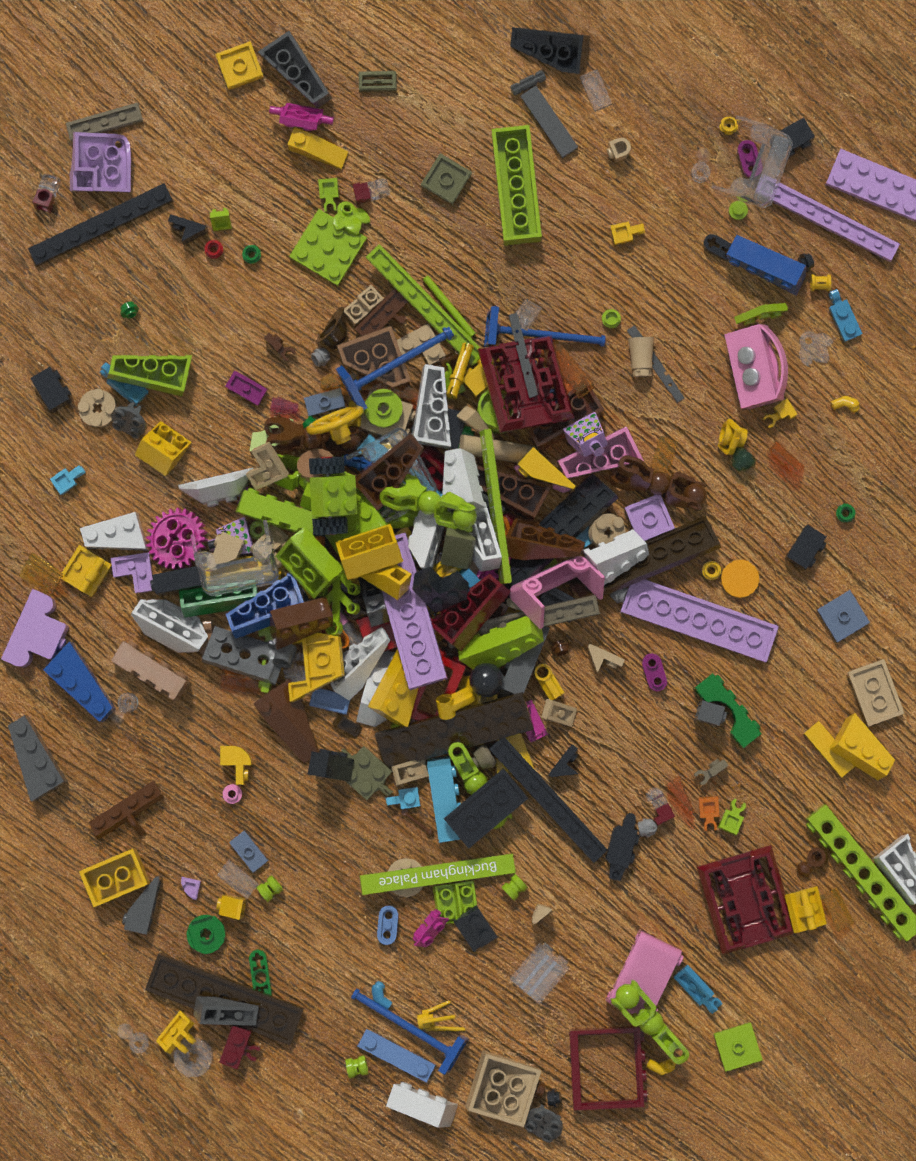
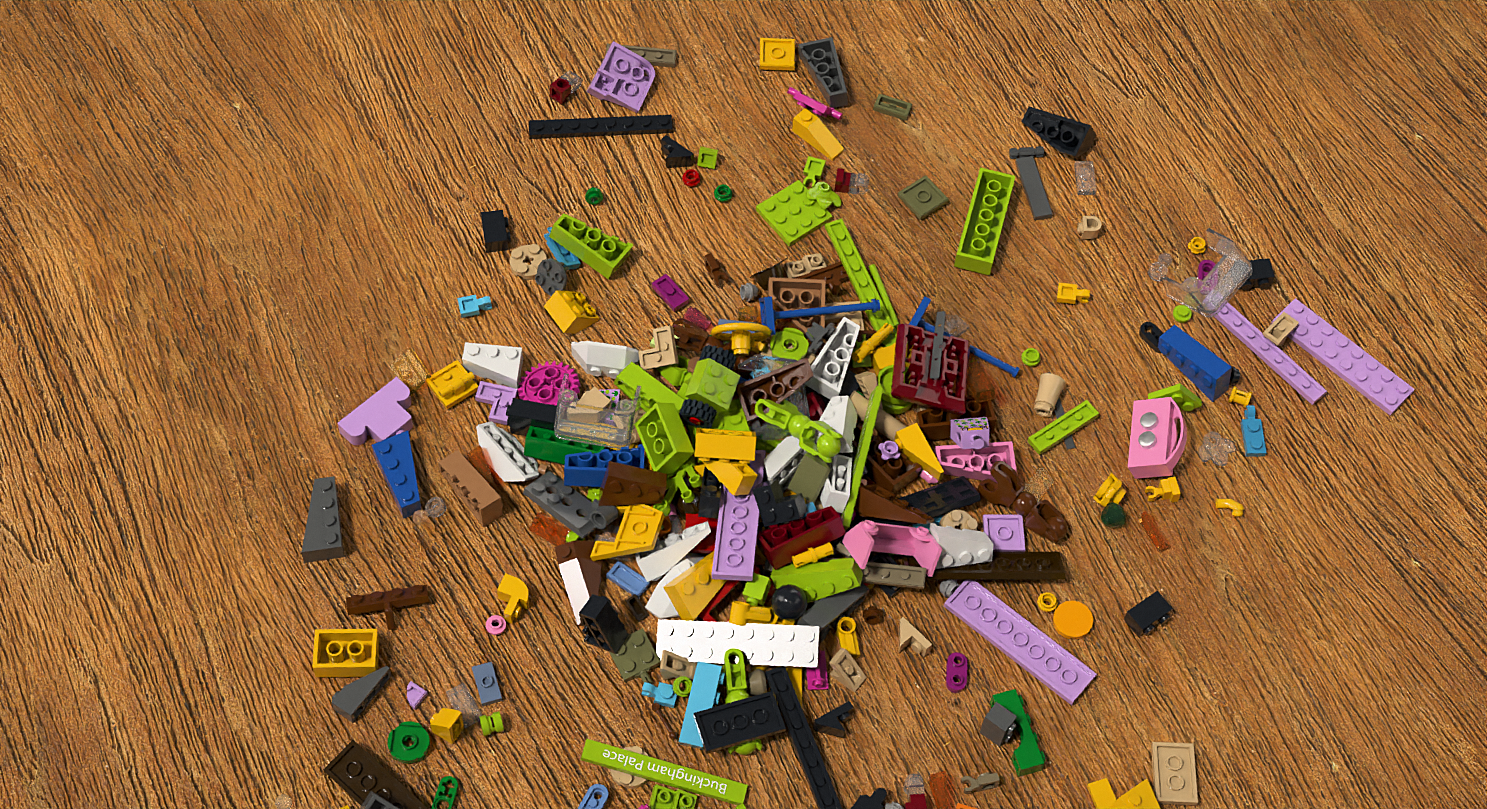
camera: 10 degrees right, 25 degrees down
(147, 645) = (479, 462): none -> clear orange slope
(408, 391) = (817, 334): none -> dark grey plate
(426, 787) = (688, 684): none -> lime plate
(455, 679) = (757, 590): none -> lime brick
(489, 626) = (812, 555): none -> yellow pin
(518, 478) = (891, 446): none -> lavender plate
(666, 383) = (1063, 427): none -> lime plate
(837, 195) = (1280, 329): none -> tan slope
(843, 616) = (1164, 691): sand blue plate -> none
(849, 508) = (1202, 596): green plate -> none

